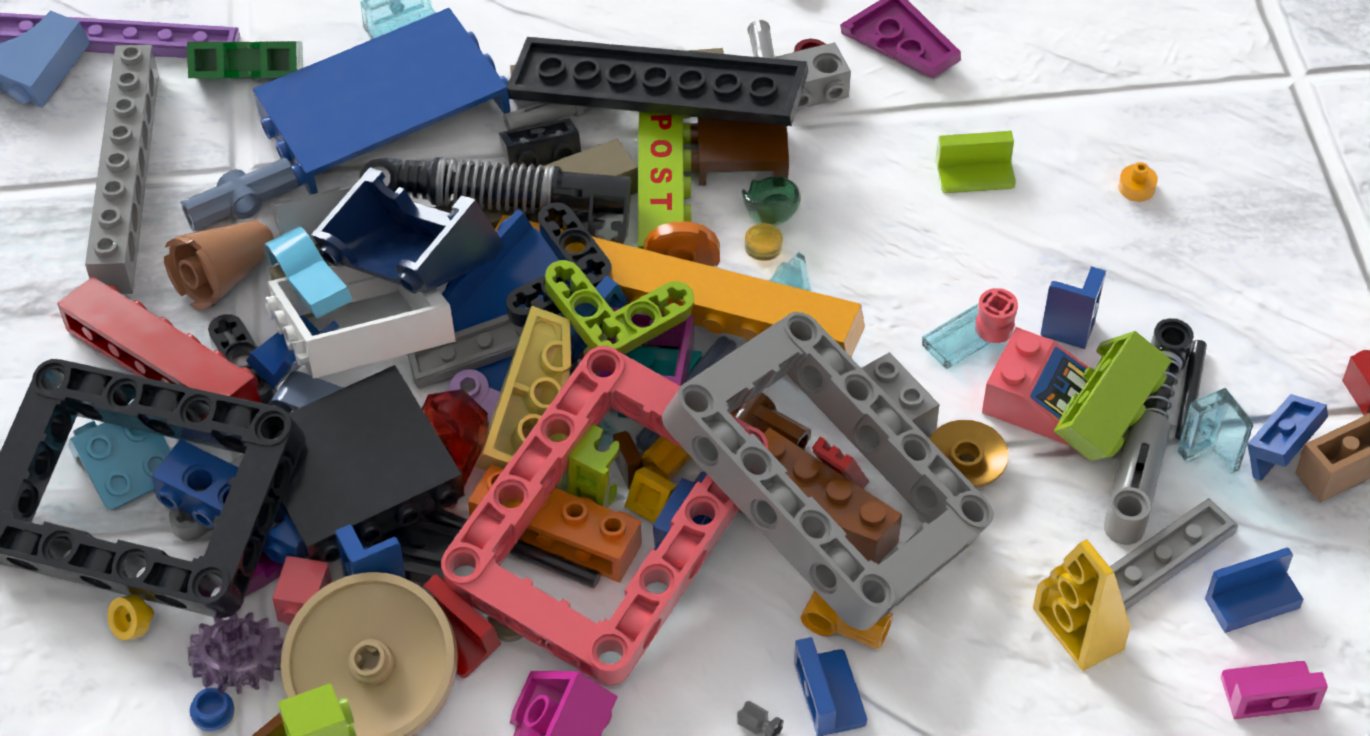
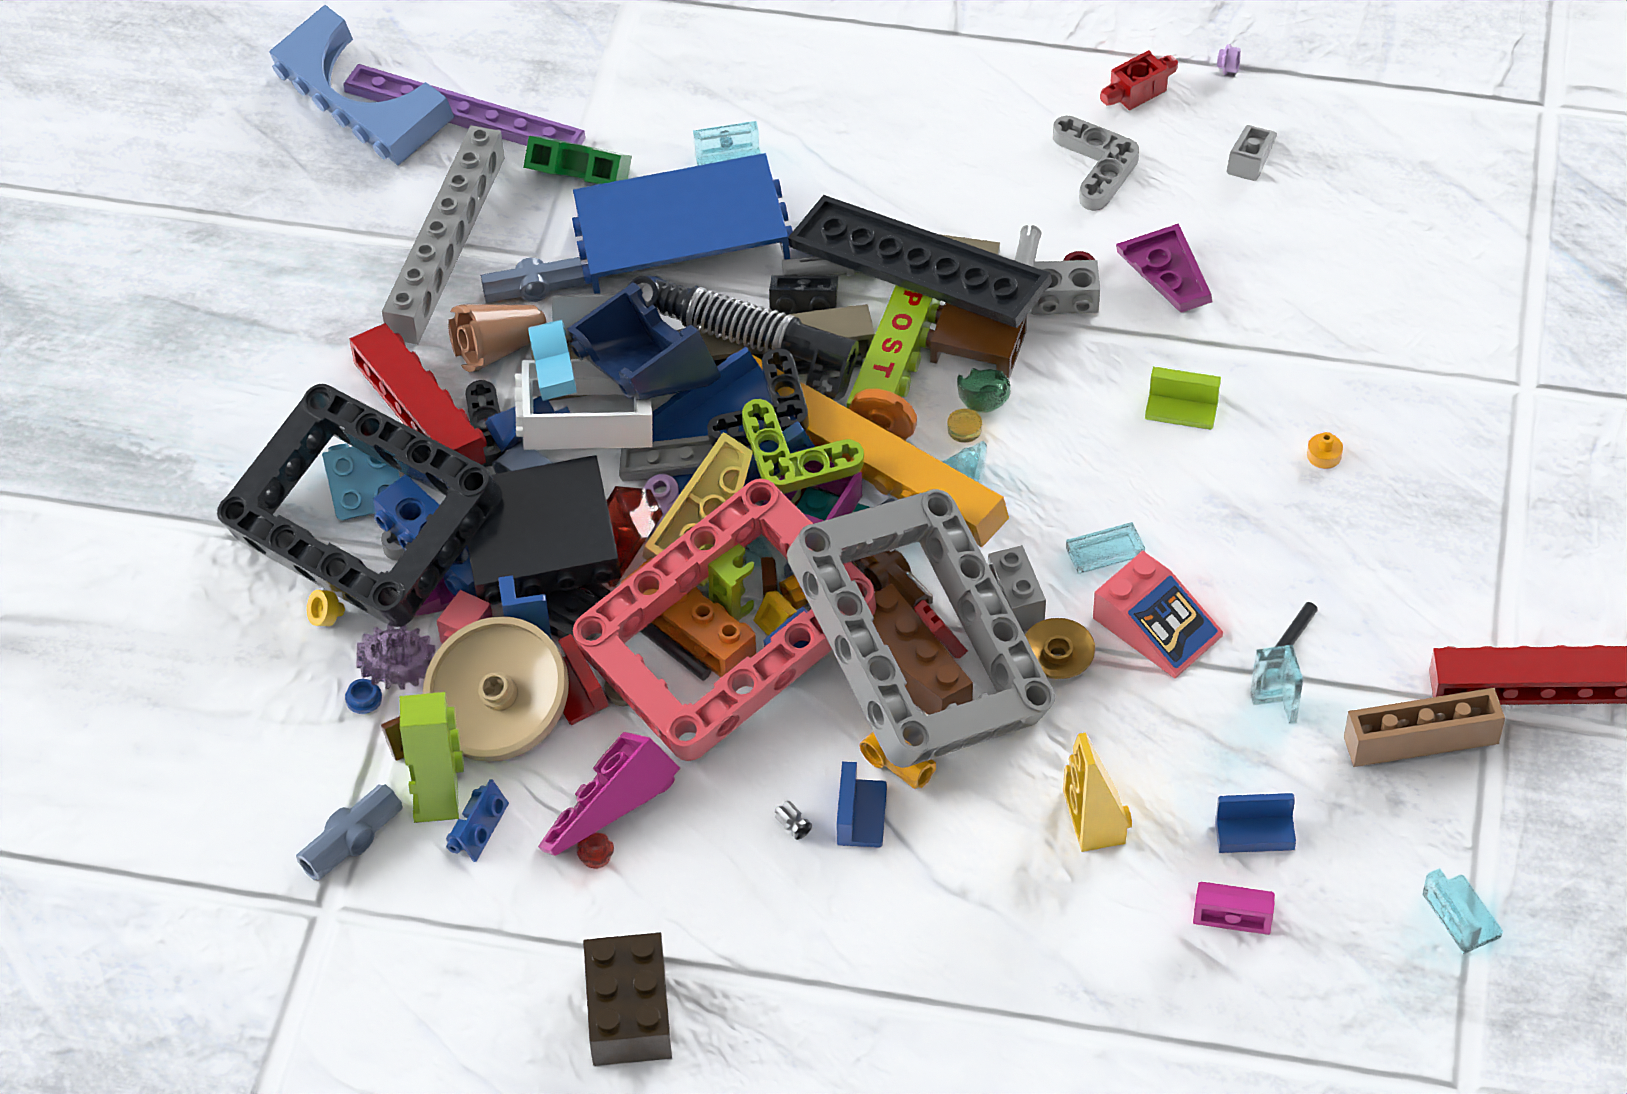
camera: 20 degrees right, 0 degrees up
(996, 315) = (1132, 535): coral wheel -> none
(1072, 310) = (1205, 552): blue panel -> none
(1113, 395) = (1200, 630): lime wedge -> none
(1147, 442) = (1224, 671): light grey piece -> none
(1172, 551) = (1192, 776): light grey tile -> none
(1285, 434) = (1335, 699): blue panel -> none

